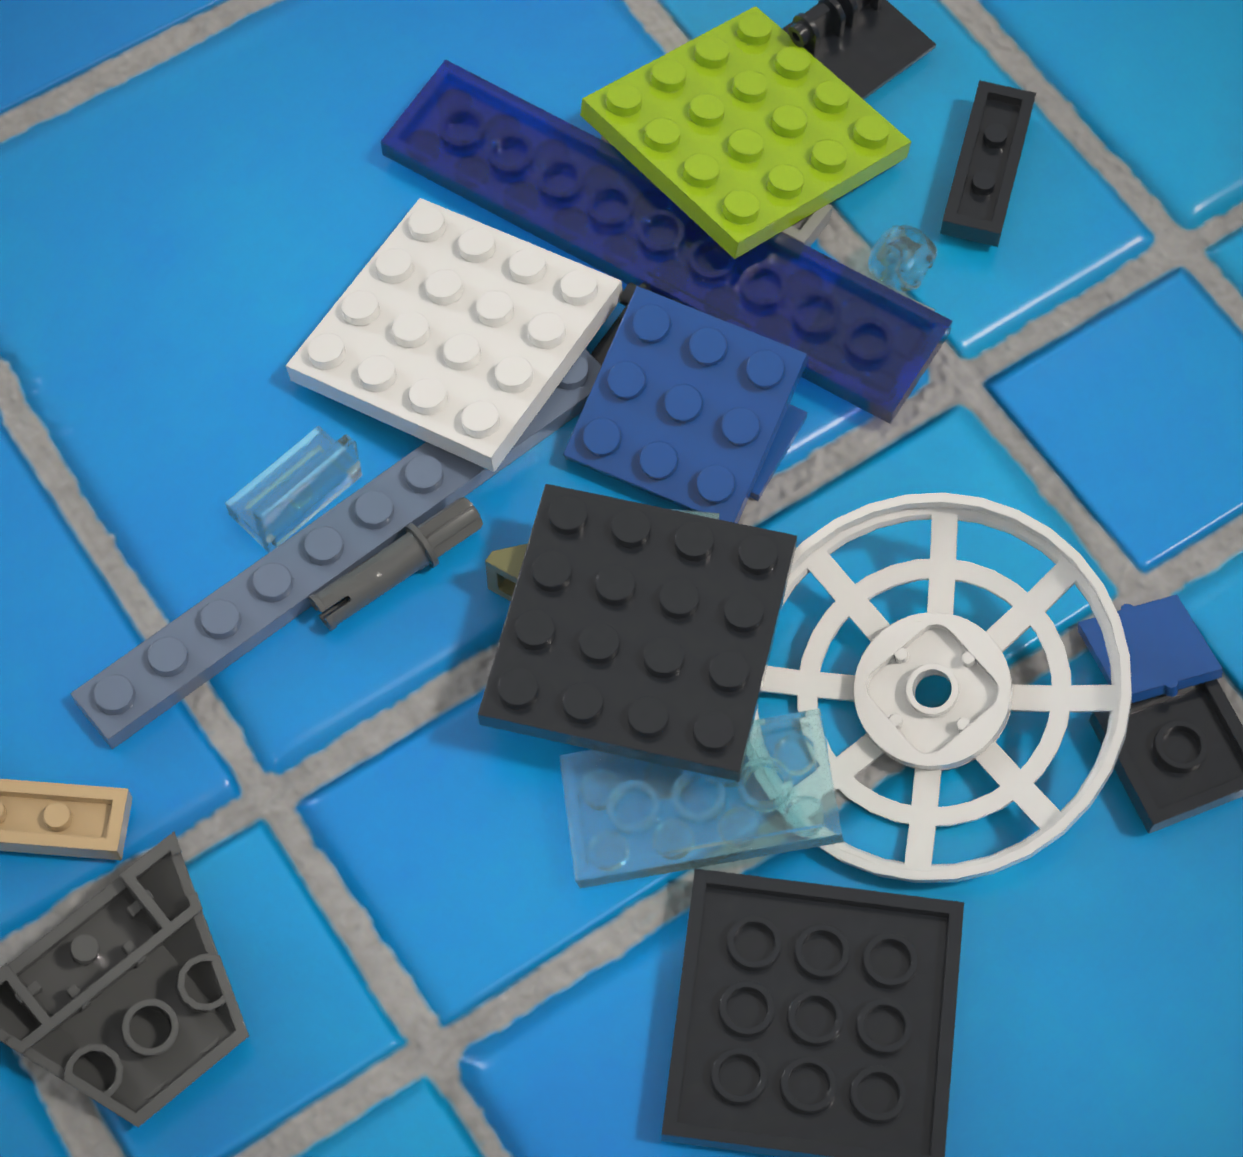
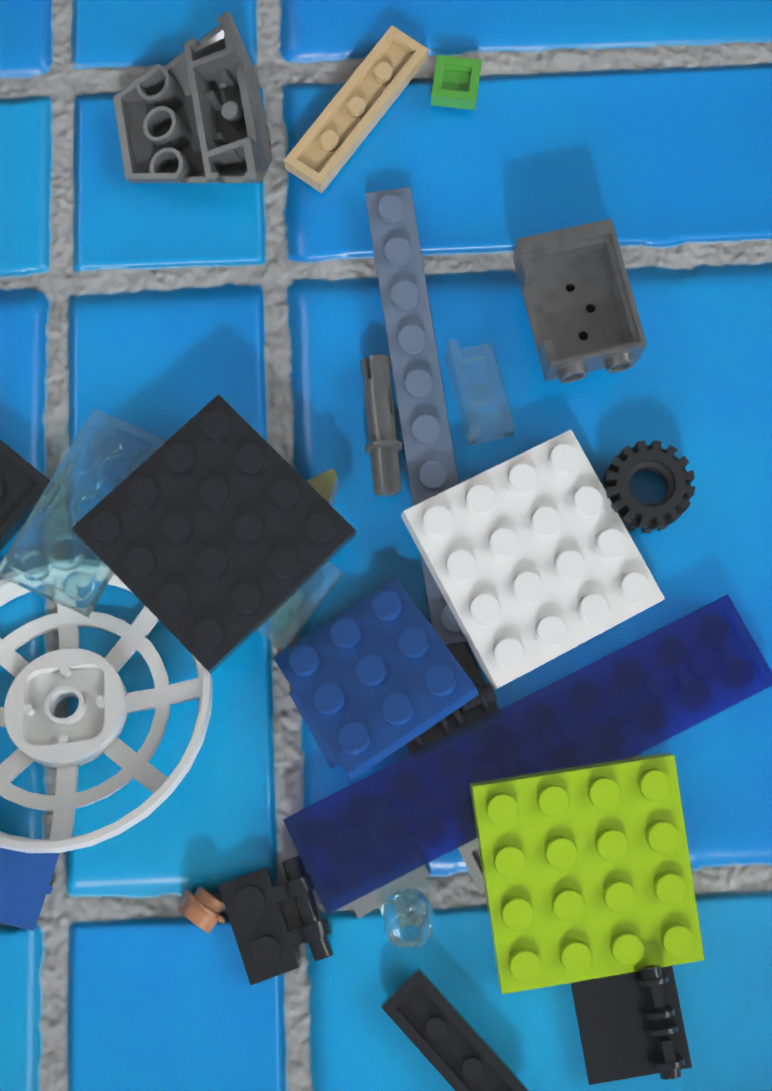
camera: 125 degrees right, 15 degrees up
(134, 412) = (579, 301): none -> flat silver piece
(298, 242) = (668, 467): none -> black tyre
(1005, 391) = (261, 926): none -> black plate
(1033, 446) = (201, 909): none -> nougat plate

